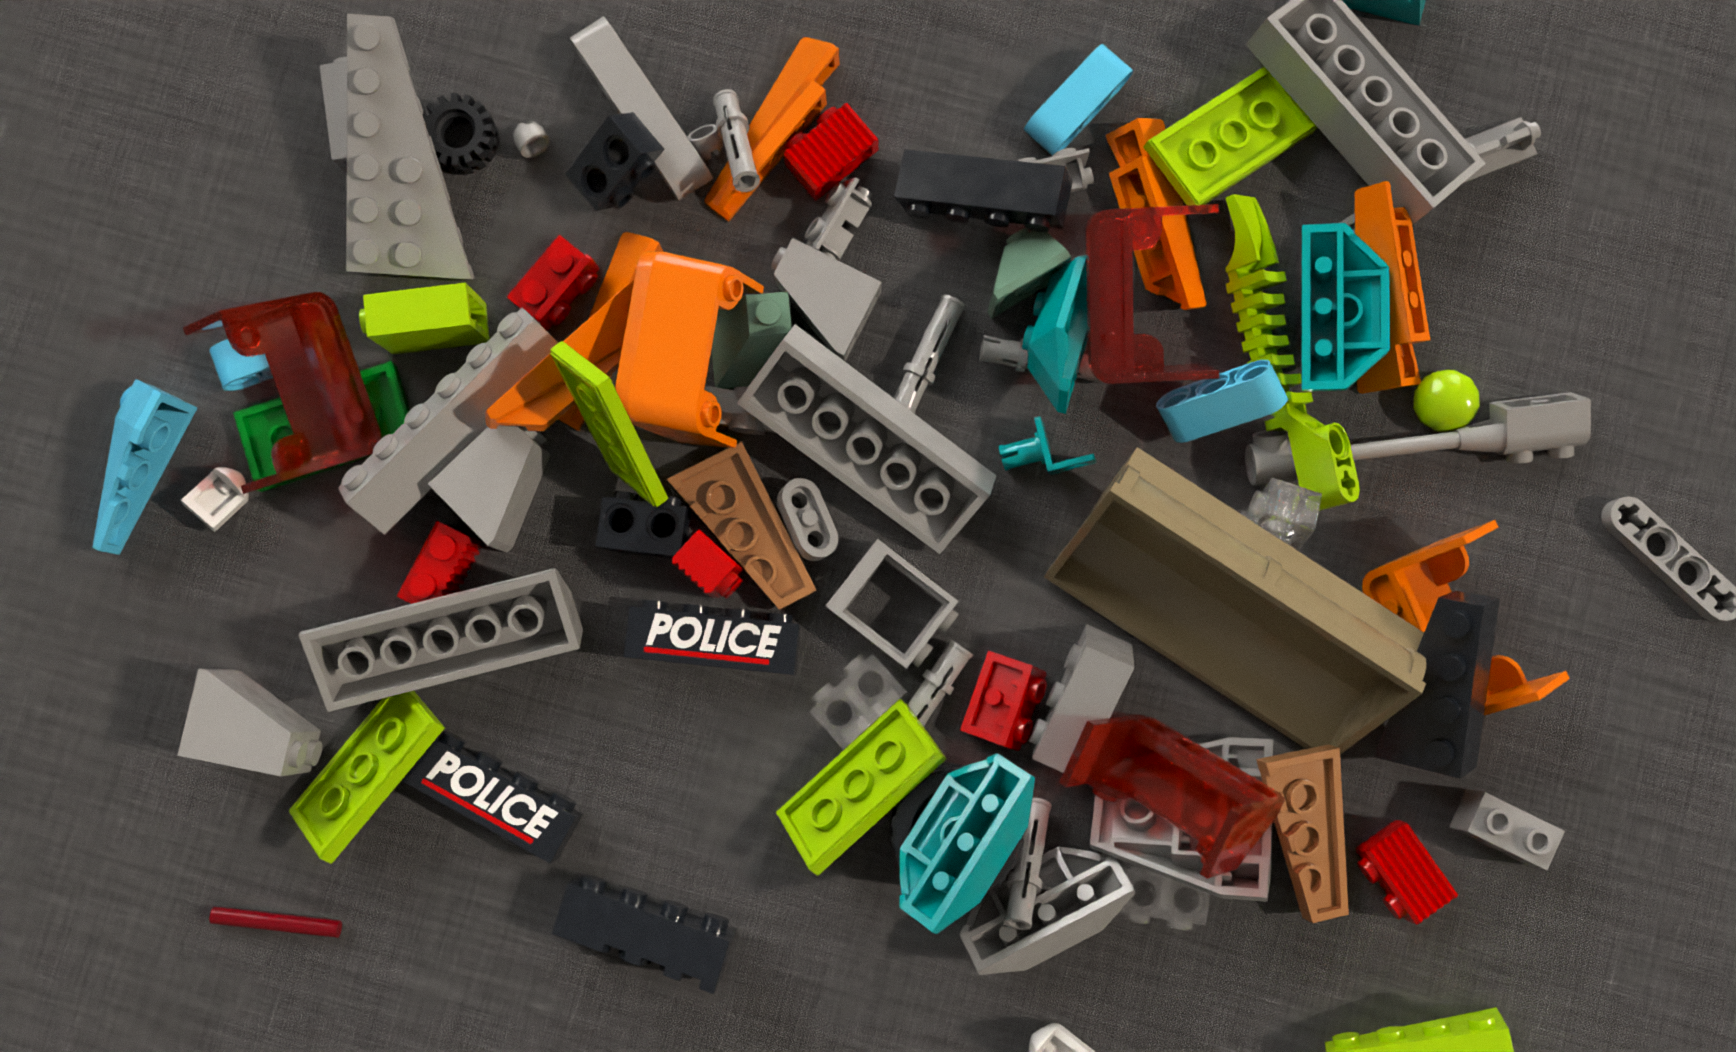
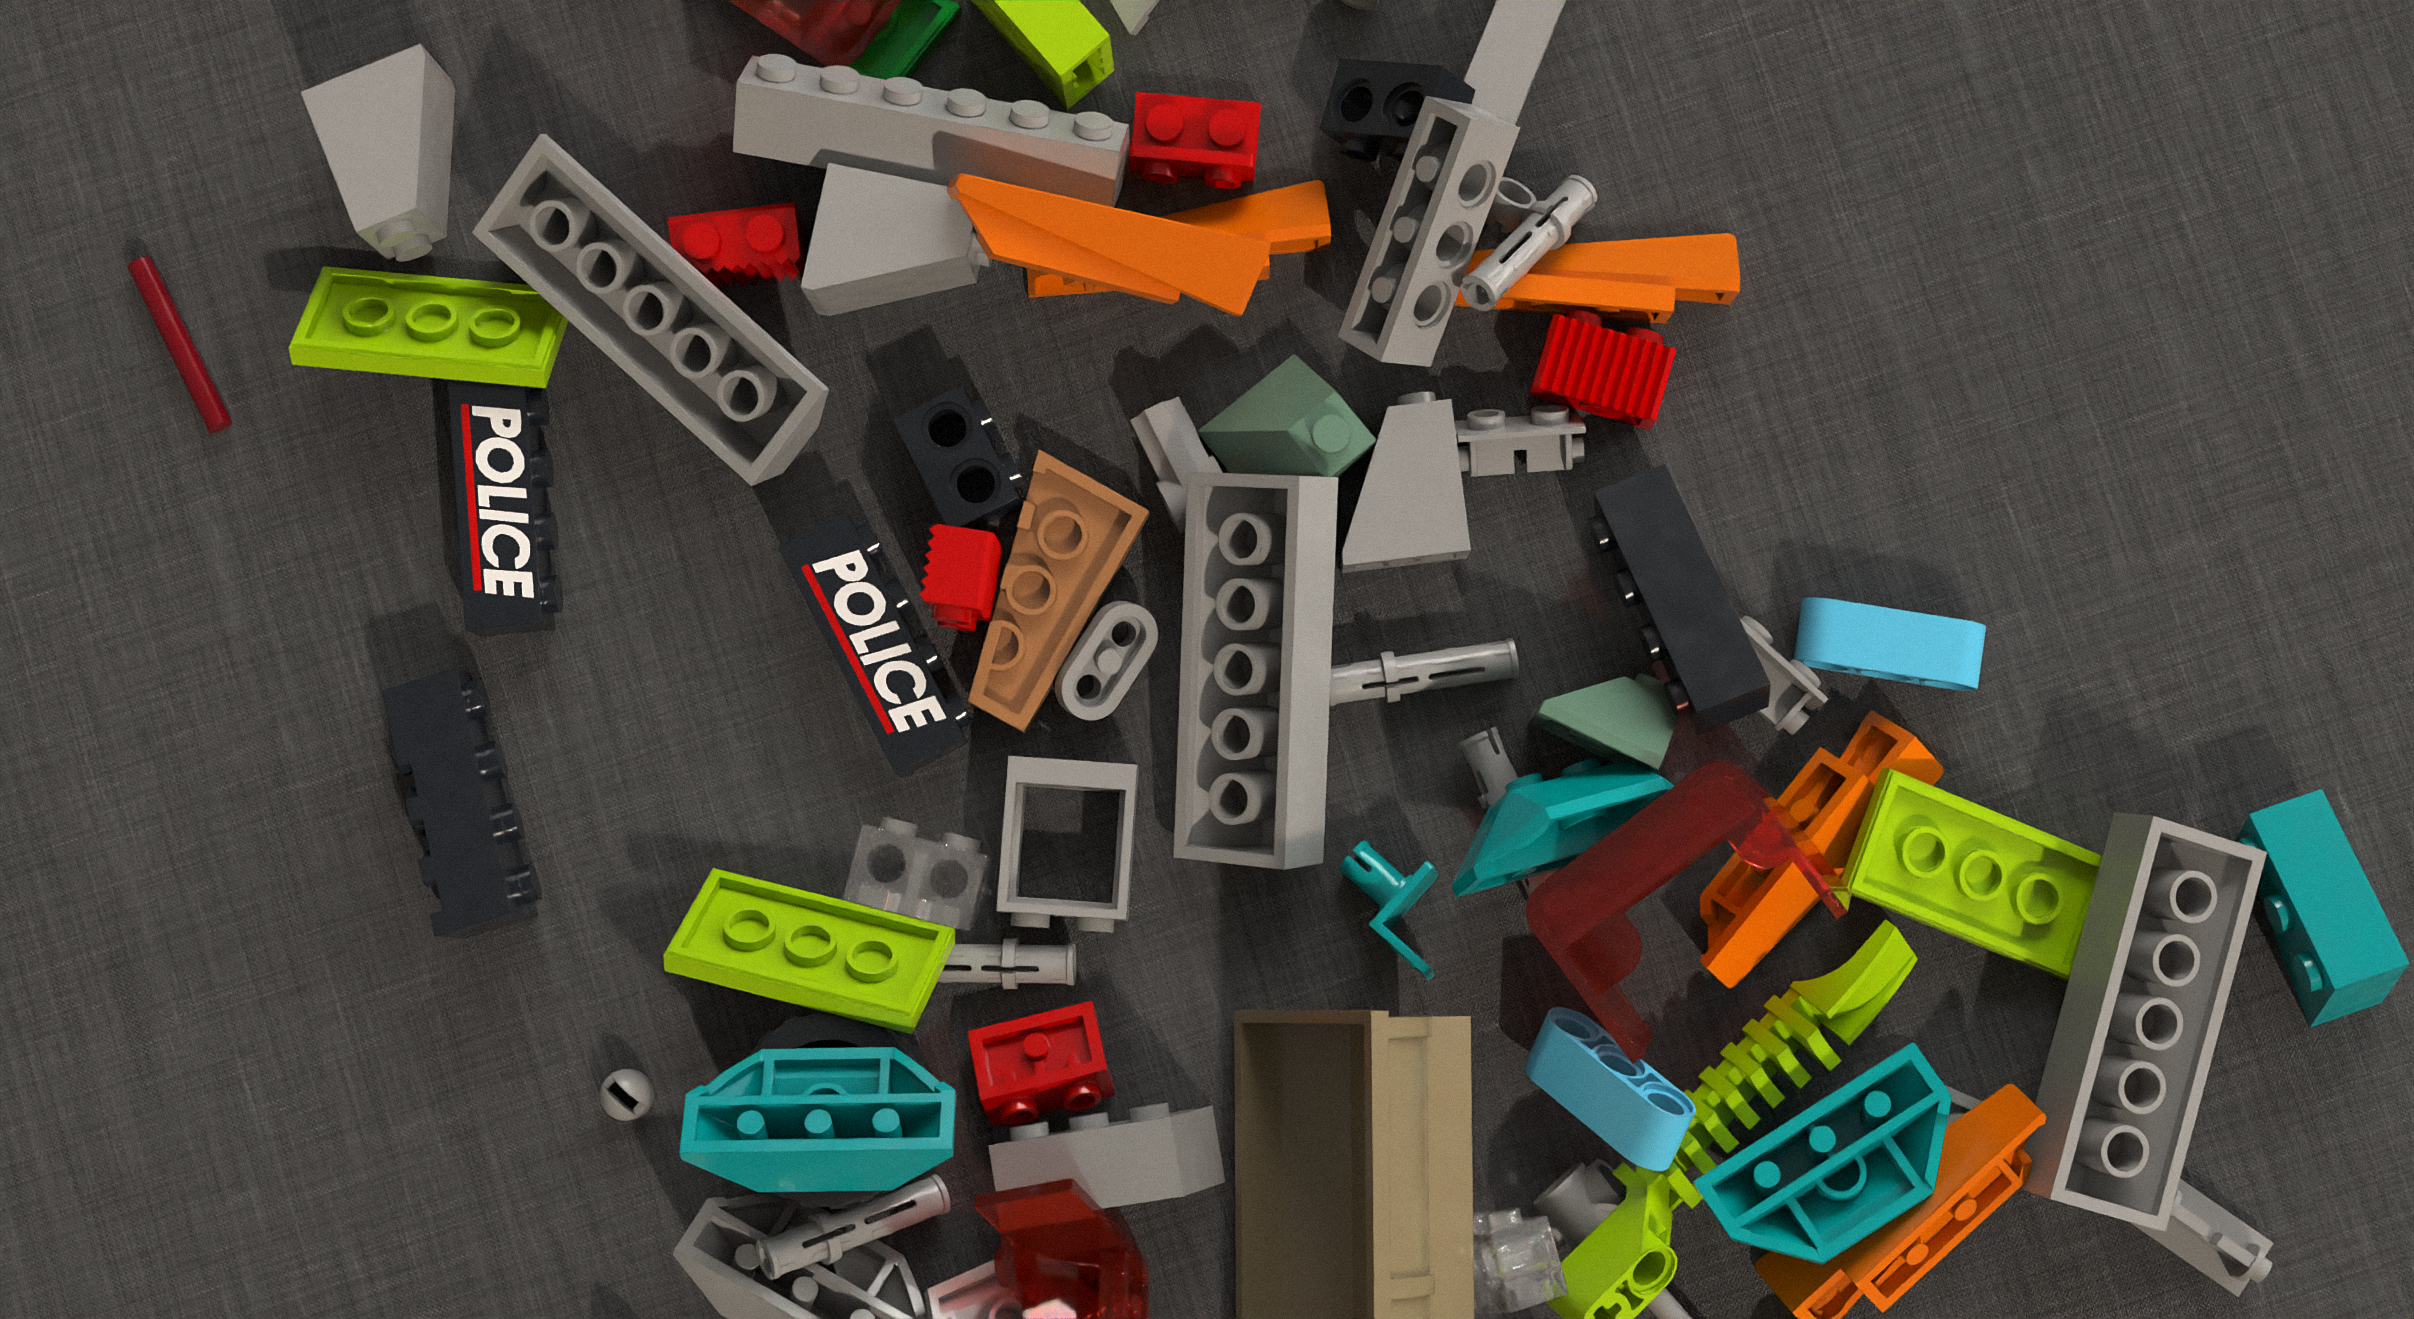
camera: 60 degrees right, 0 degrees up
(608, 423) = (1049, 333): lime tile -> none
(671, 345) = (1204, 340): orange windscreen -> none
(693, 185) = (1428, 232): none -> light grey brick
(866, 935) = (633, 1083): none -> light grey hinge

